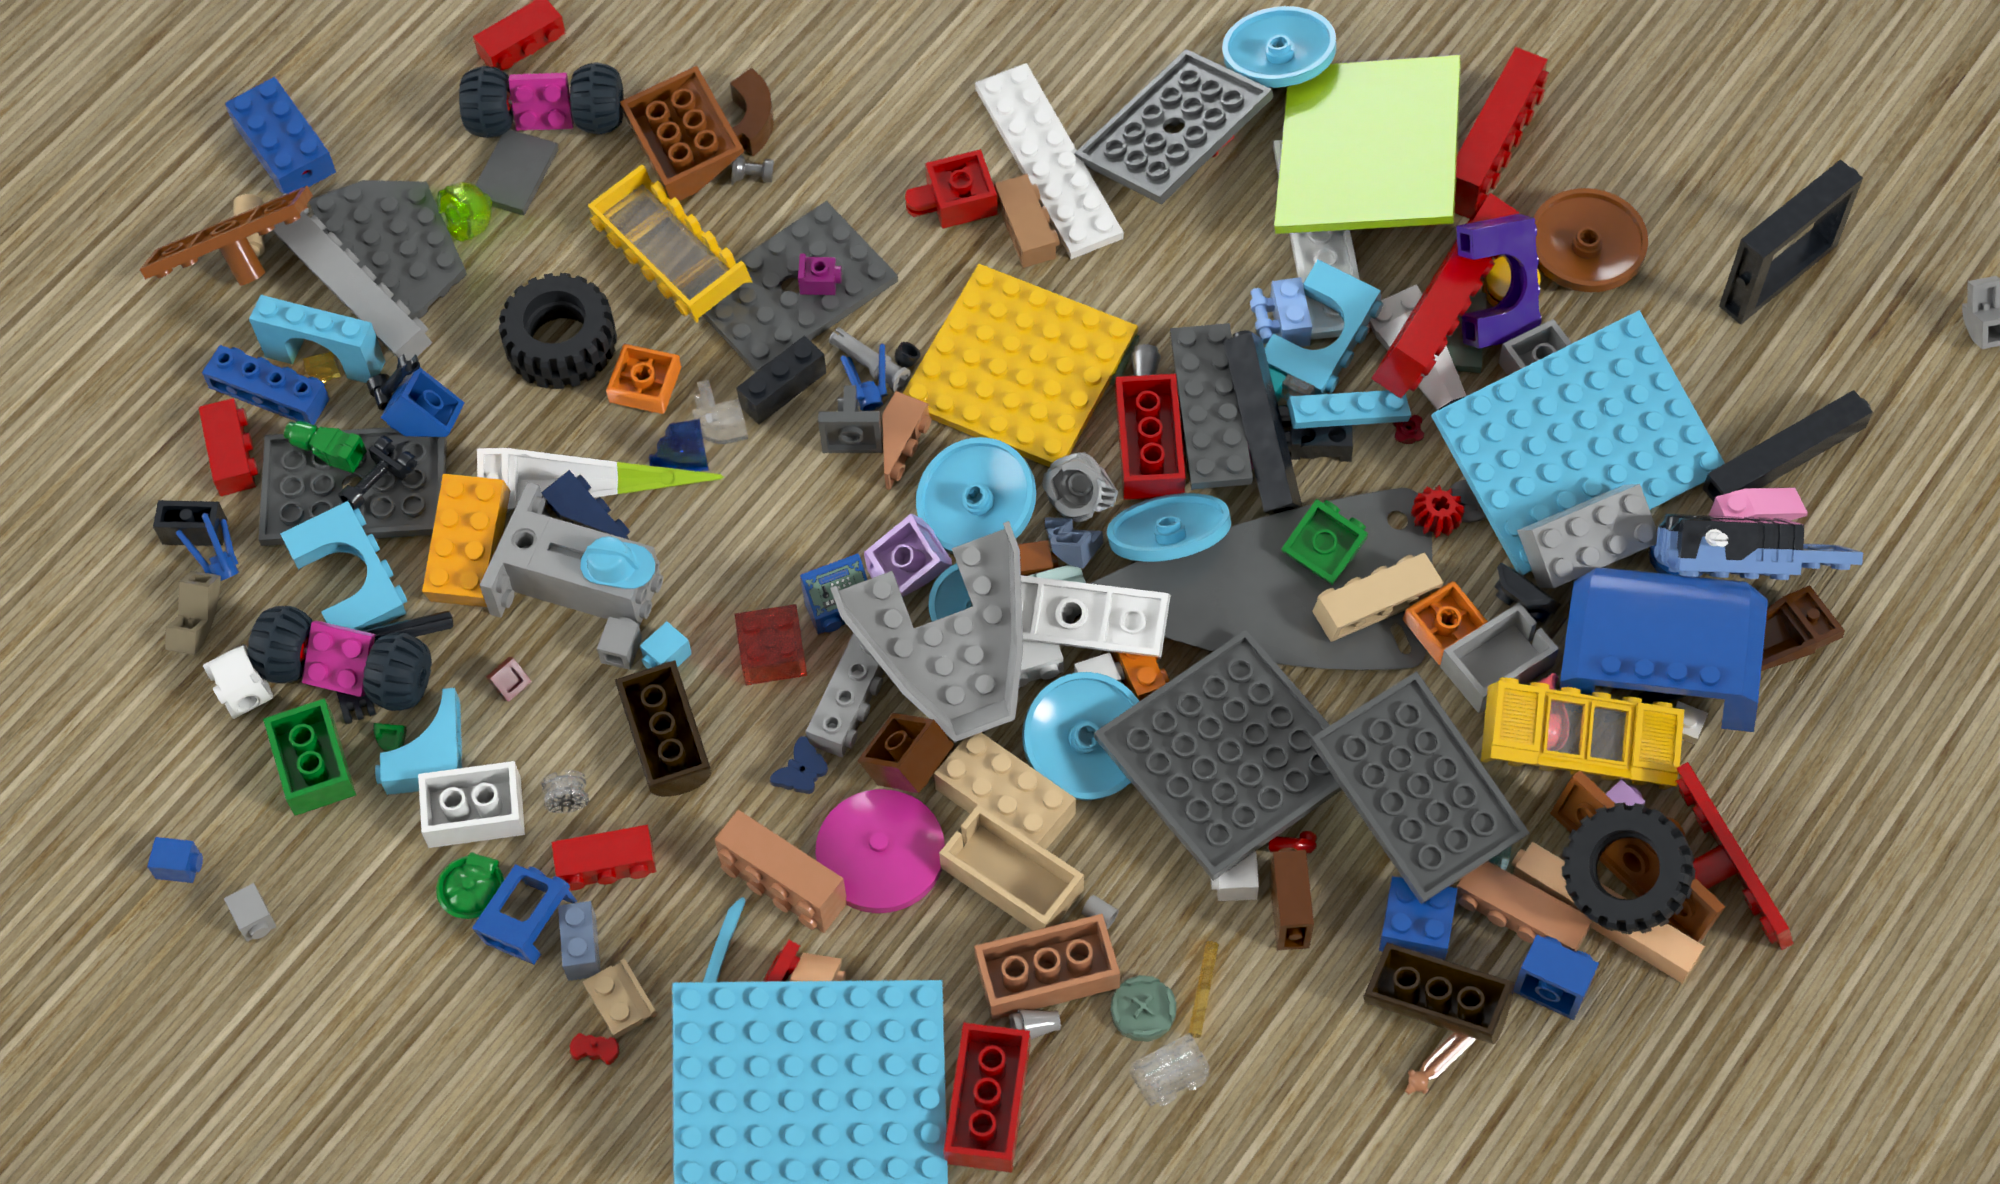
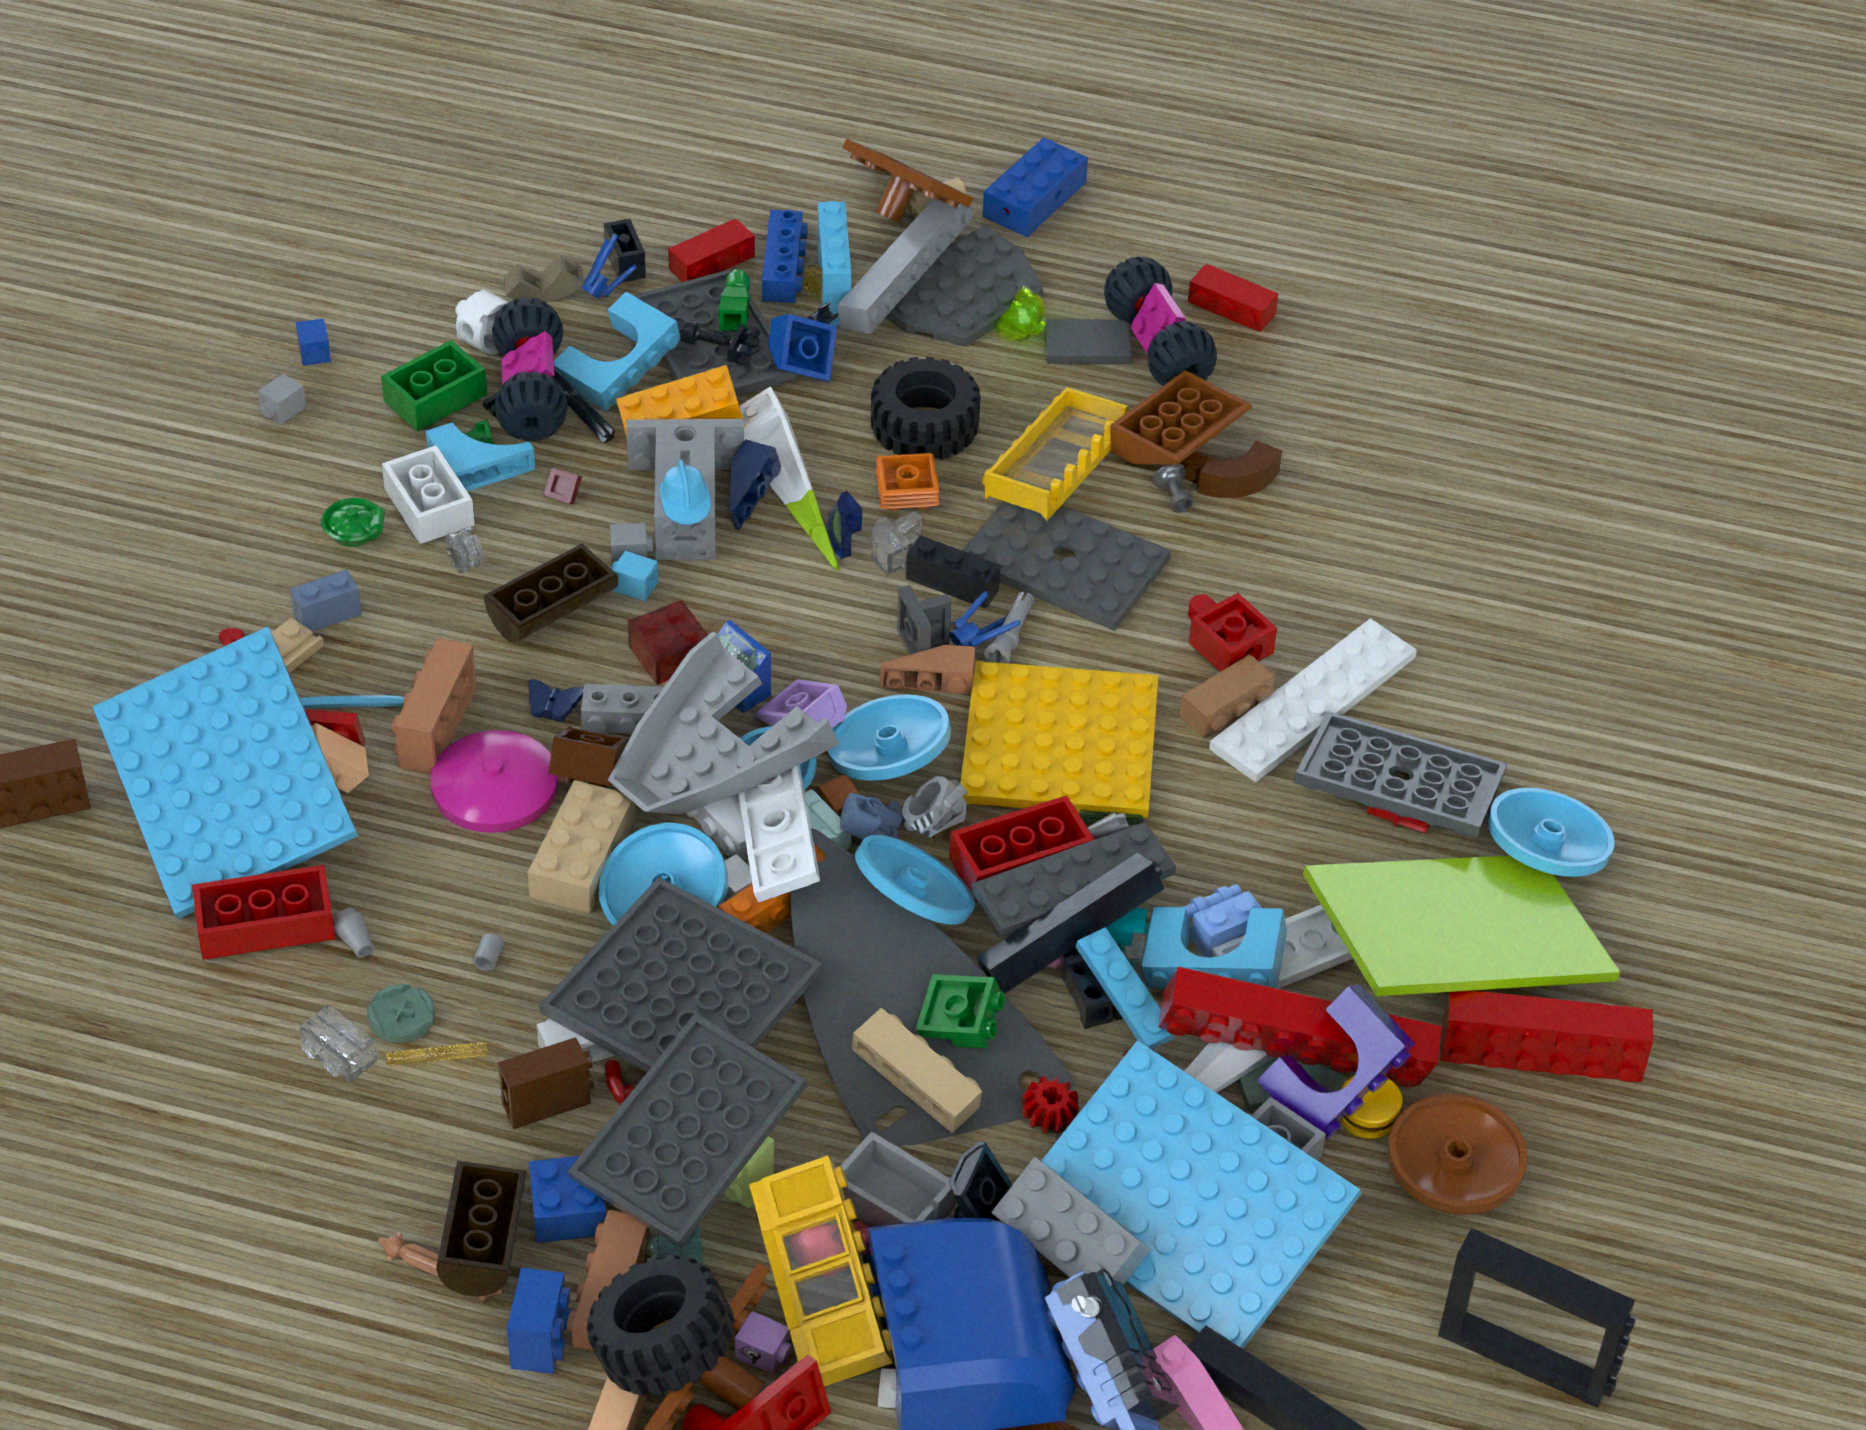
camera: 65 degrees right, 15 degrees down
(518, 936) = (310, 553): blue window -> none
(604, 857) = (412, 595): red brick -> none
(818, 275) = (1073, 557): magenta brick -> none
(906, 354) = (1033, 654): black hinge -> none
(1011, 870) = (494, 869): tan piece -> none
(1047, 966) = (410, 920): nougat brick -> none
(1443, 605) = (919, 1122): orange brick -> none

